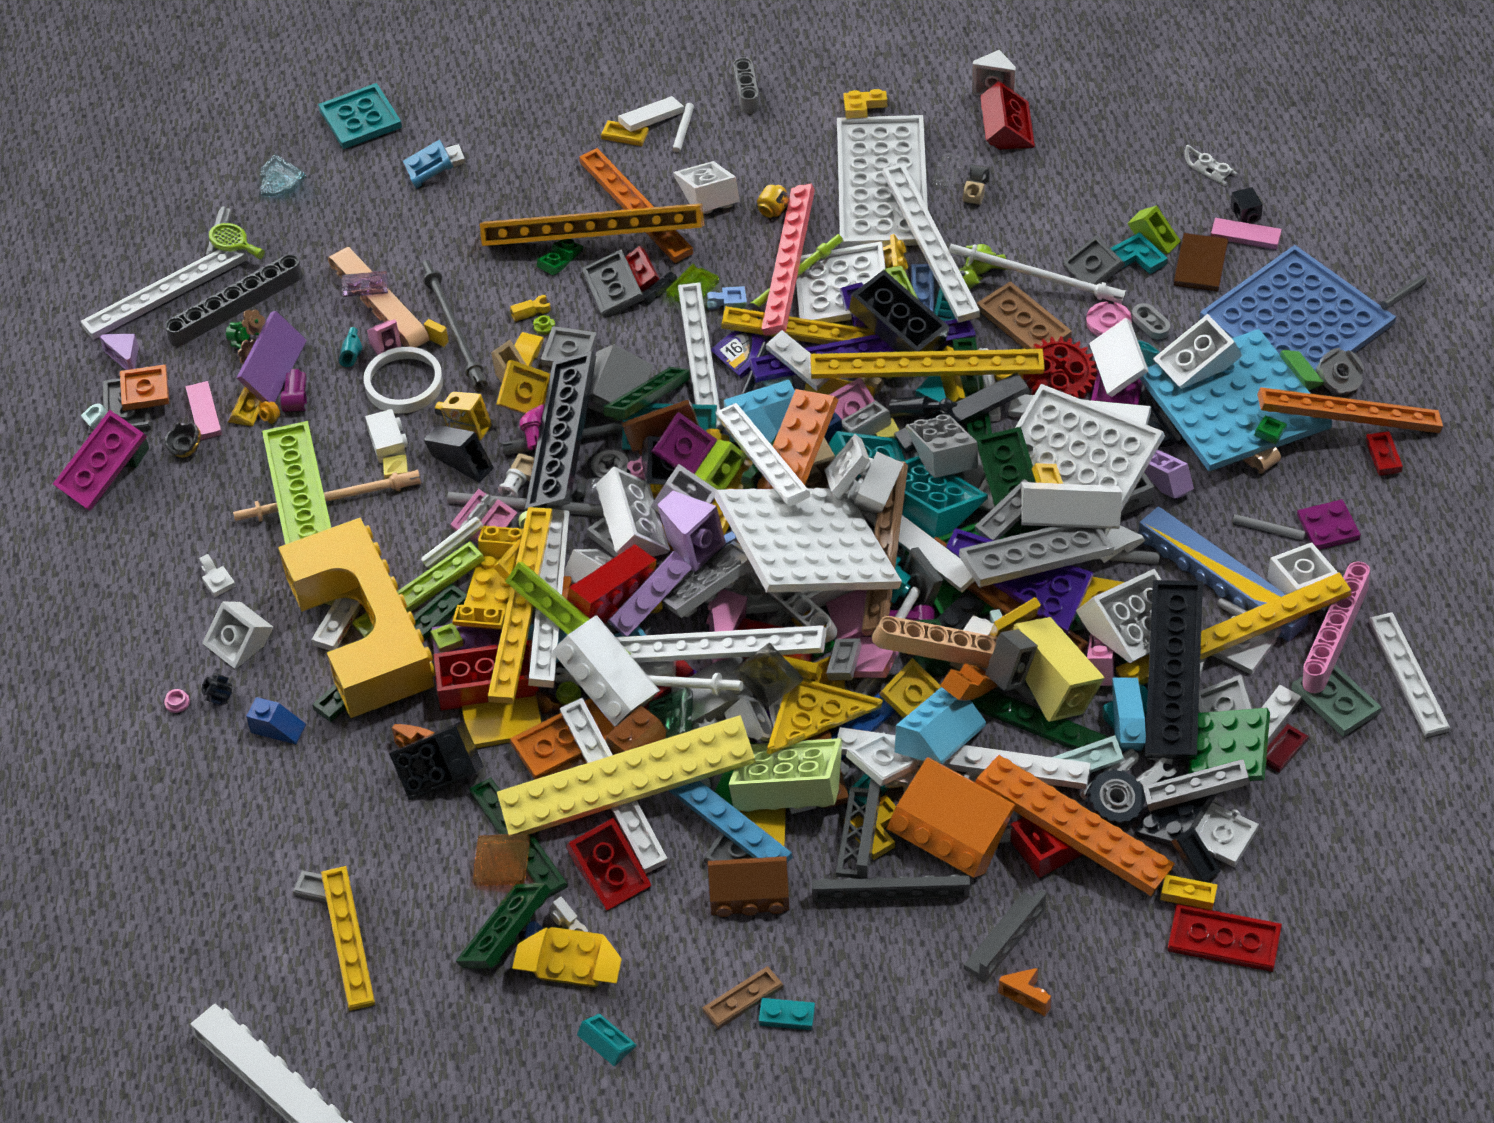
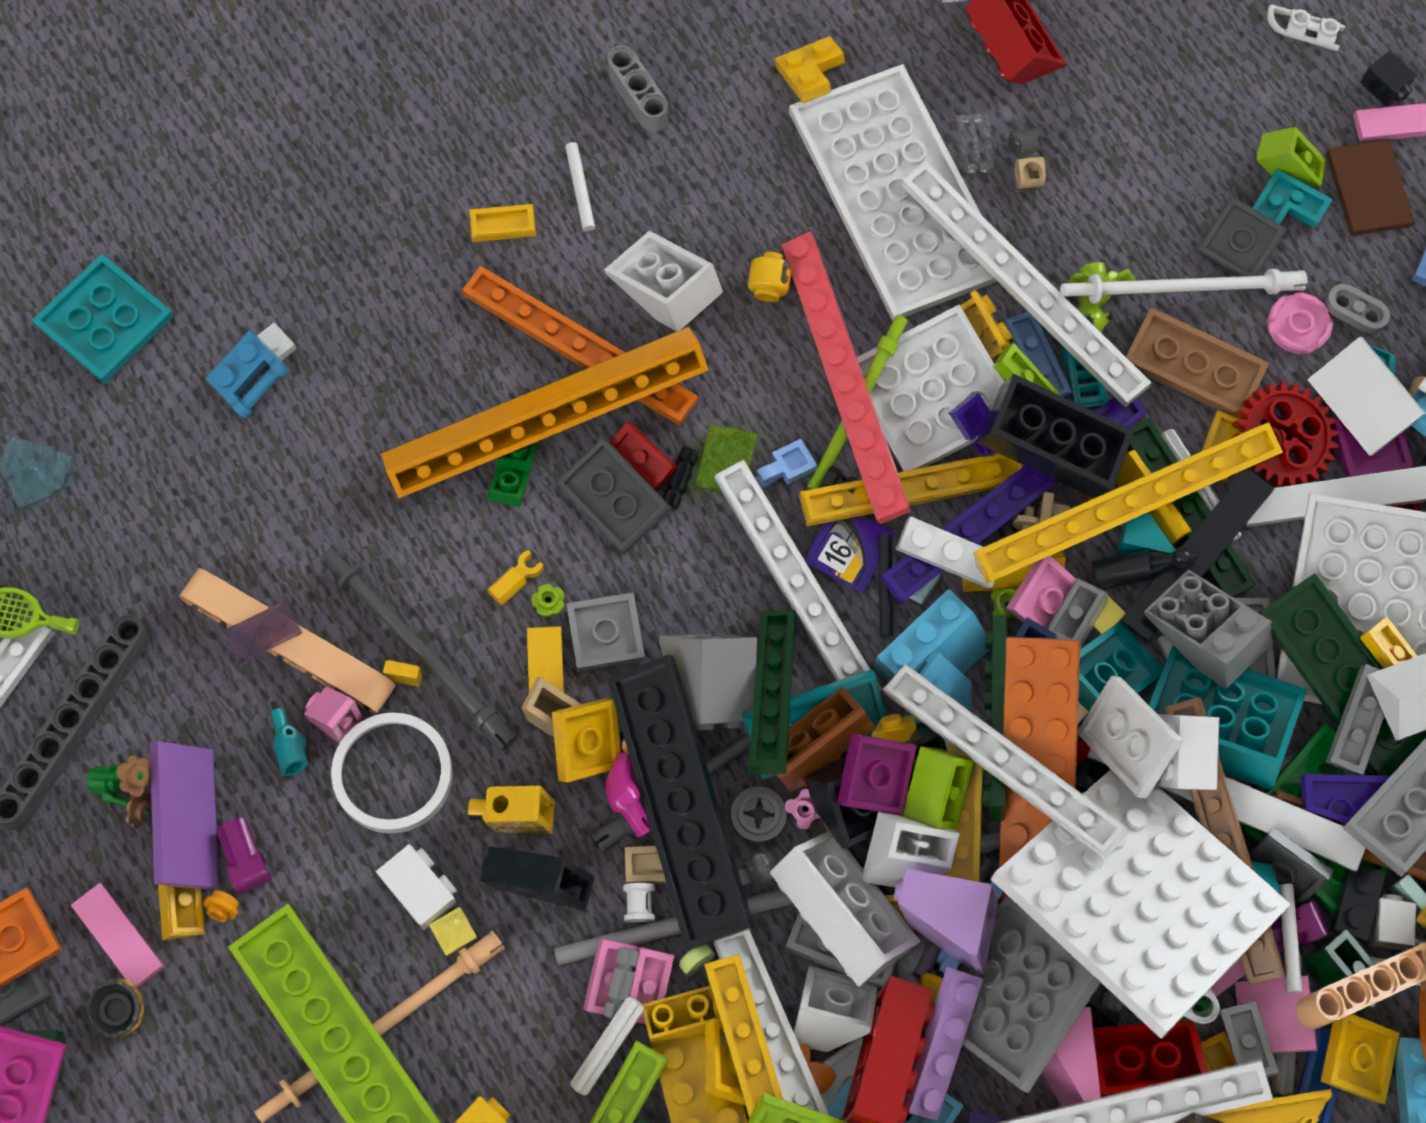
camera: 30 degrees left, 20 degrees up
(651, 114) = (527, 180): white tile -> none

